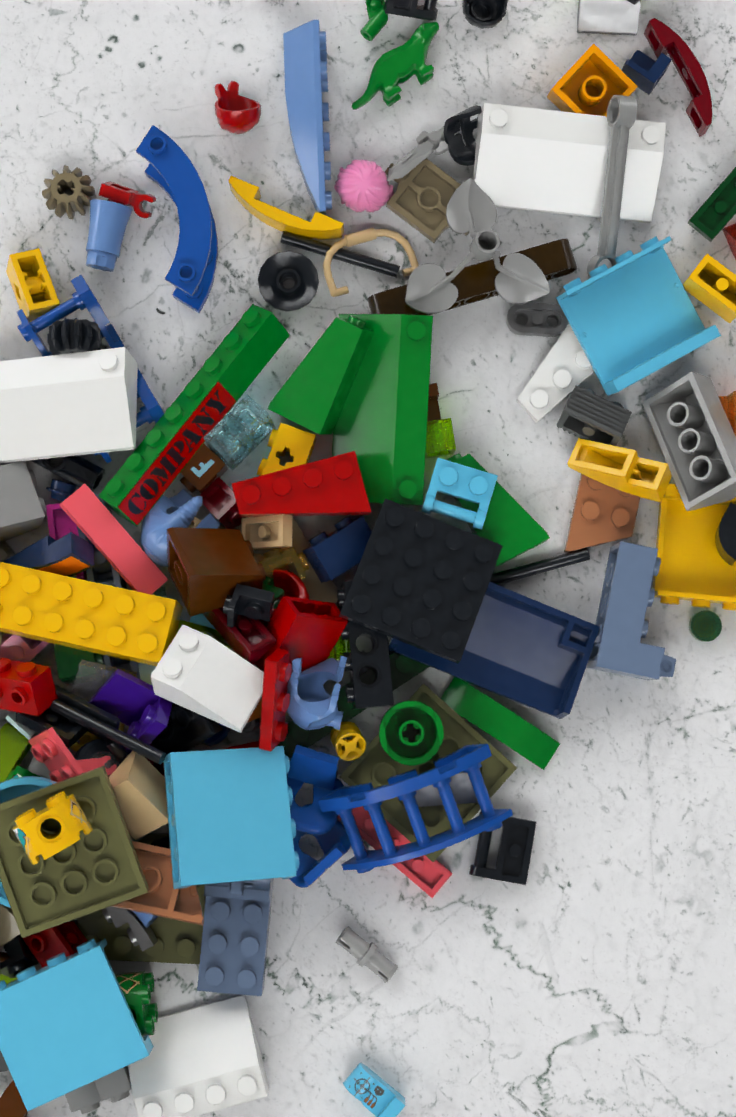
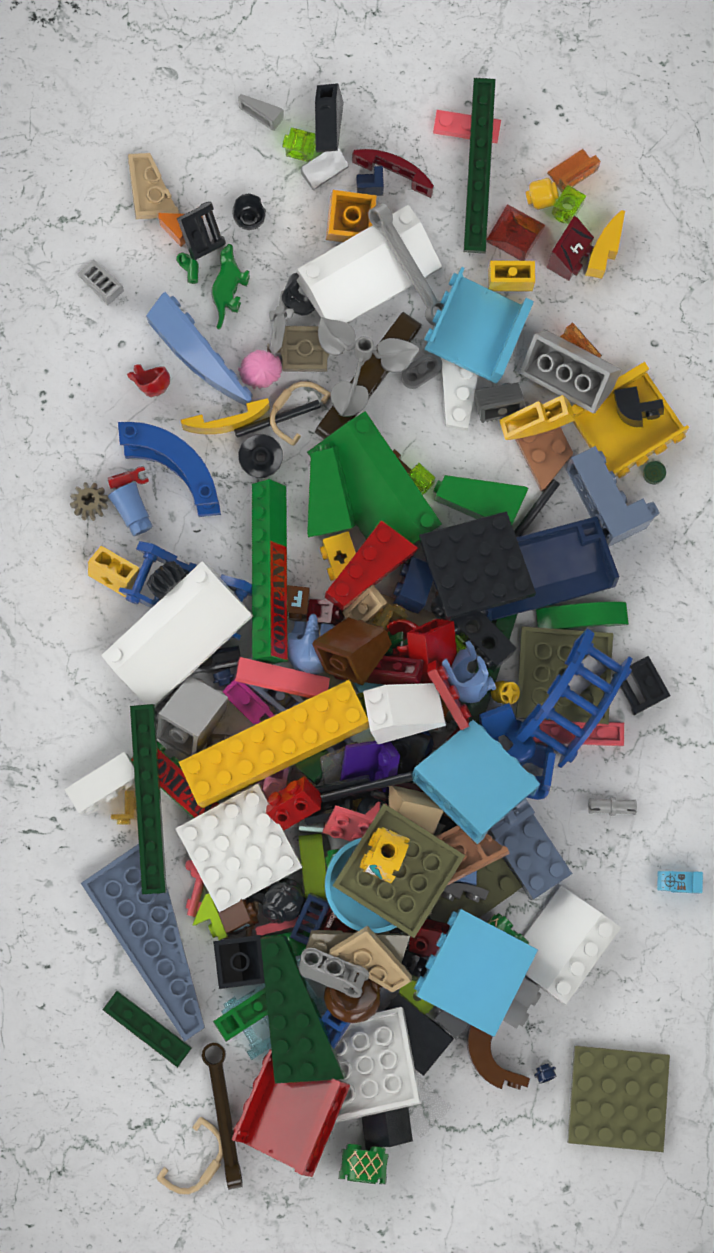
camera: 40 degrees left, 5 degrees down
(62, 556) = (261, 707): dark blue slope -> none
(239, 432) = (302, 562): clear light blue brick -> none
(248, 602) = (391, 650): black bracket -> none
(426, 742) = (534, 645): green brick -> none
(461, 483) = (454, 494): medium azure plate -> none

